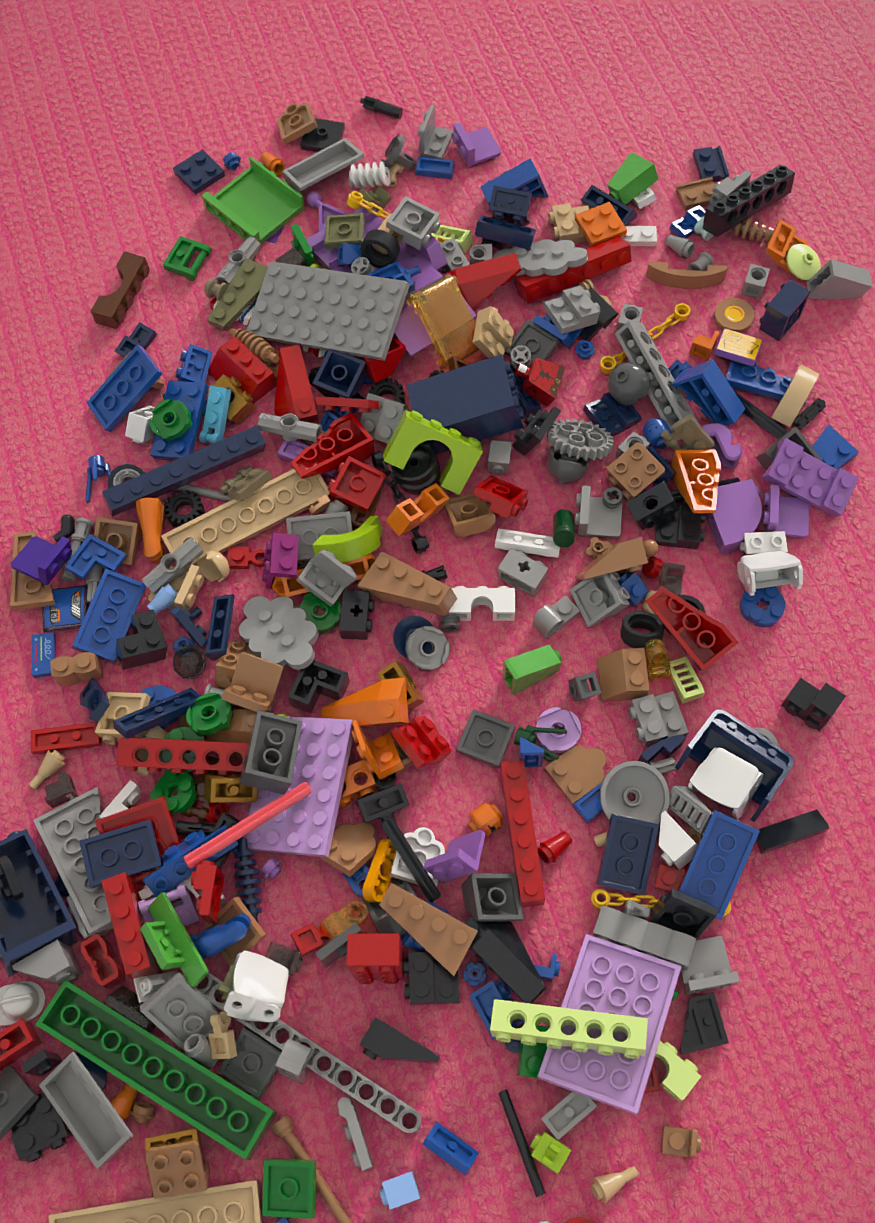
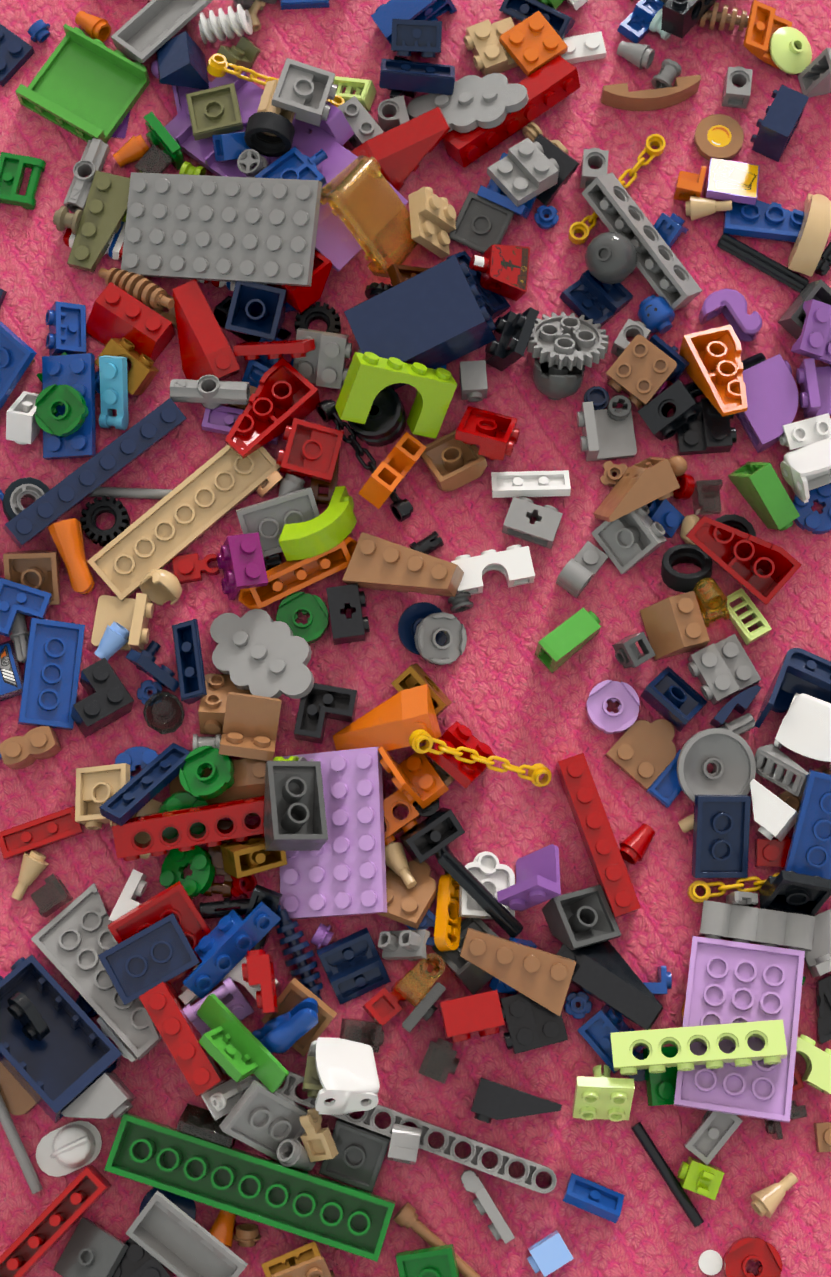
camera: 15 degrees left, 10 degrees up
(41, 1063) = (122, 1210): black plate -> none
(94, 699) = (63, 780): dark blue slope -> none
(104, 966) = (163, 1088): red brick -> none
(163, 575) = (102, 611): light grey piece -> none
(245, 483) = (178, 474): dark tan plate -> none
(247, 825) = (288, 896): coral axle -> none
(276, 251) = (131, 151): none -> orange cone
(291, 899) = (353, 966): none -> dark blue slope
(326, 576) = (304, 578): light grey bracket -> none
(330, 196) = (182, 63): none -> dark blue slope
(336, 889) = (404, 944): none -> light grey hips
(343, 995) = (439, 1060): none -> clear smoke brick
(348, 818) = (397, 862): none -> tan cone
(477, 1057) = (603, 1096): none -> yellowish green plate
(480, 769) = (533, 772): none -> yellow piece
(485, 738) = (532, 733): dark grey plate -> none
(485, 818) = (552, 828): orange head -> none
(523, 353) = (472, 239): light grey wheel -> none
(528, 734) = (580, 725): dark green plant -> none
(530, 753) = (587, 743): blue slope -> none
(563, 528) = (569, 458): dark green piece -> none
(597, 488) = (599, 397): none -> dark blue plate
(610, 733) = (673, 698): none -> dark blue slope
(645, 1110) = (774, 1127): none -> clear smoke bracket
(690, 432) = (699, 310): dark tan plate -> none
(704, 357) = (702, 207): none -> tan cone
(711, 392) = (712, 250): blue wedge -> none
(720, 586) = (765, 494): none -> bright green slope

